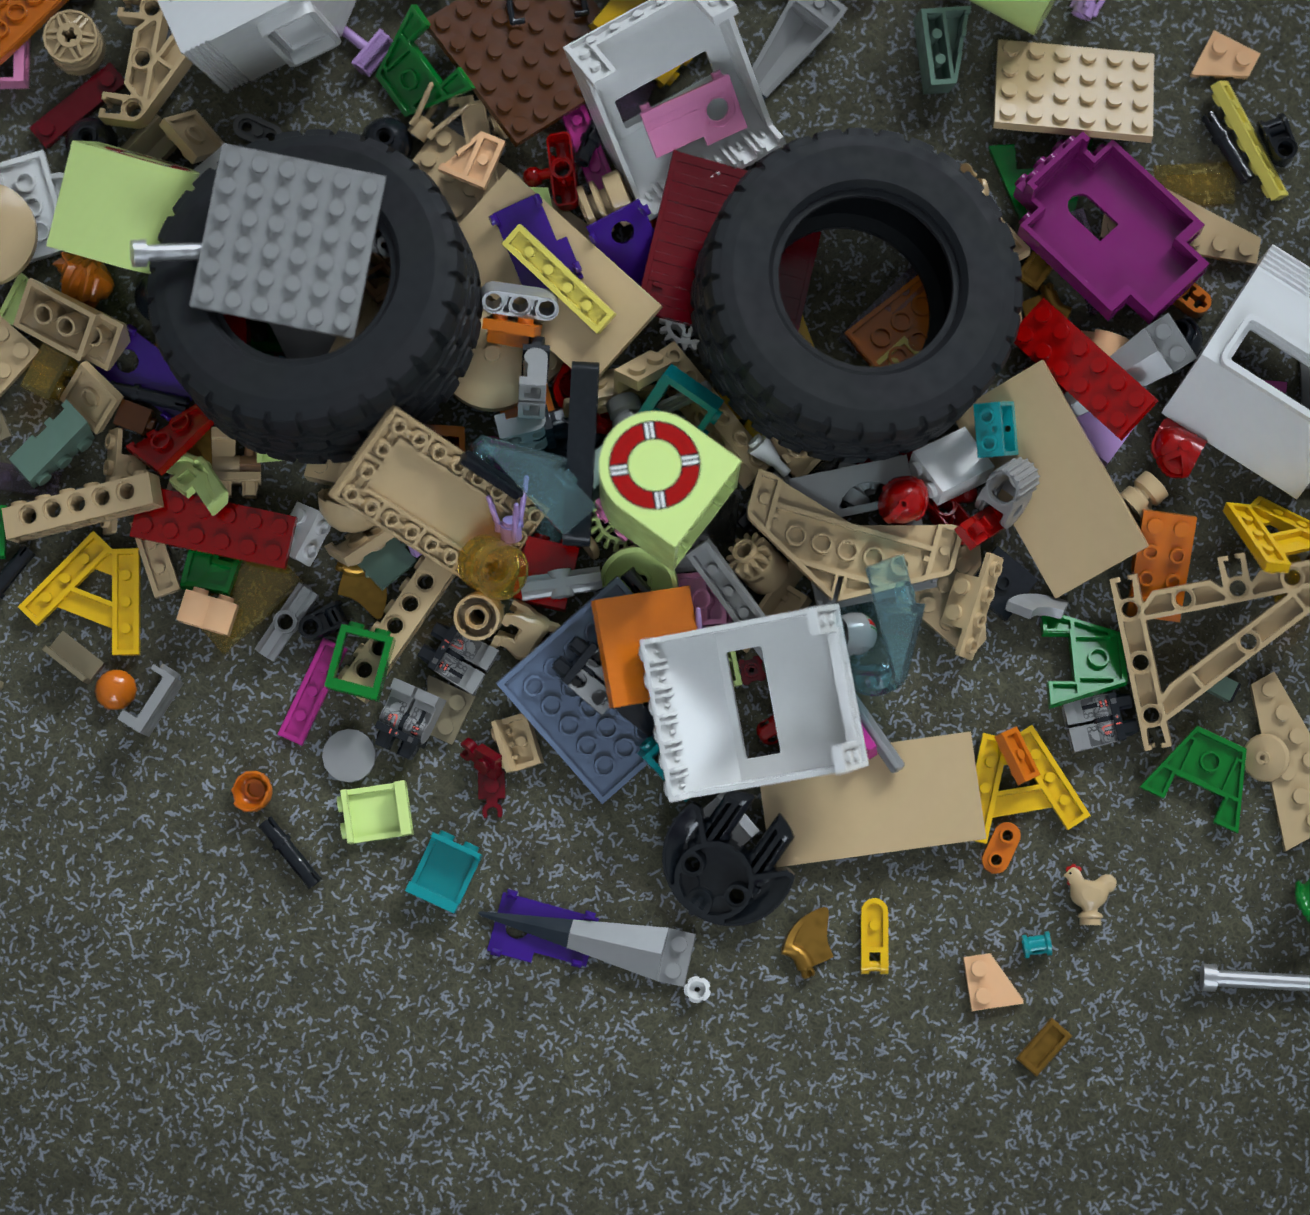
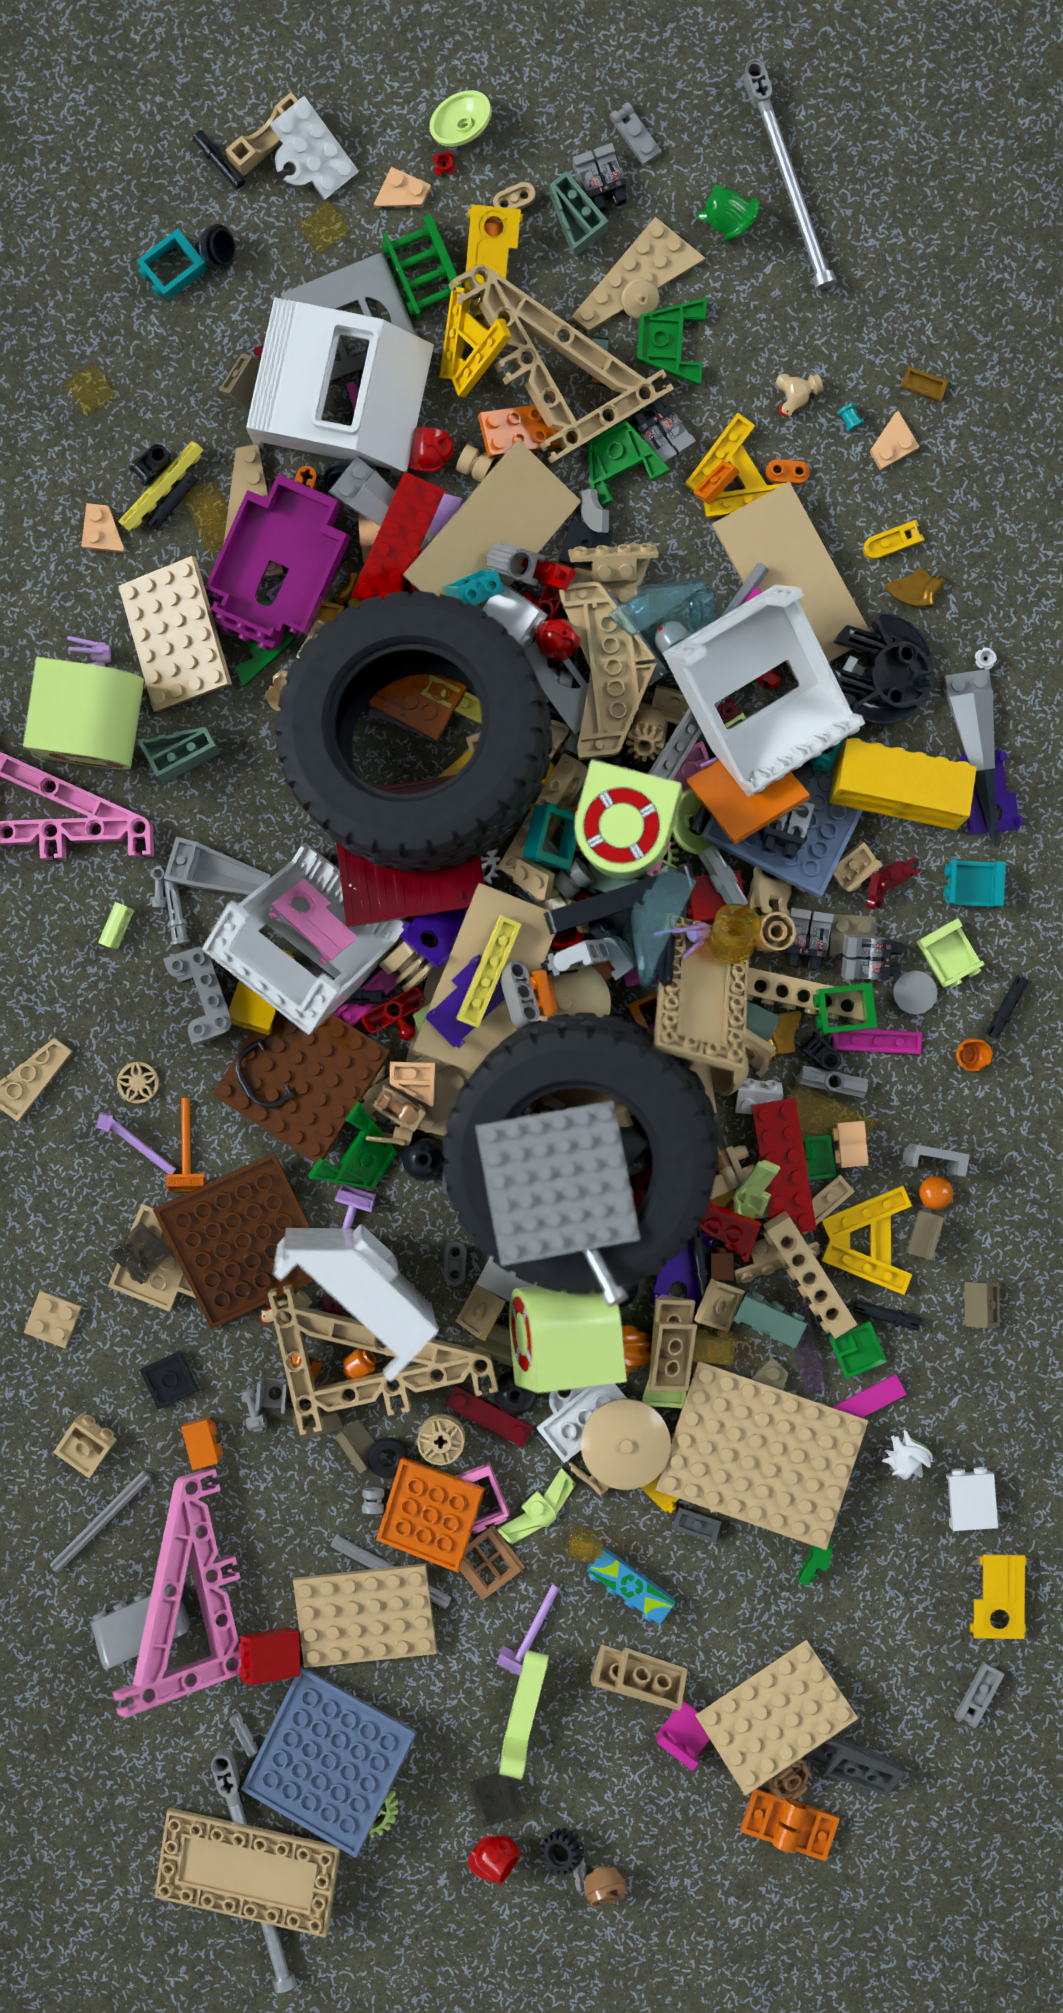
camera: 110 degrees left, 5 degrees up
(446, 137) = (408, 1112): none -> hips
(588, 828) = (902, 784): none -> yellow brick
(764, 450) = (559, 760): white cone -> none

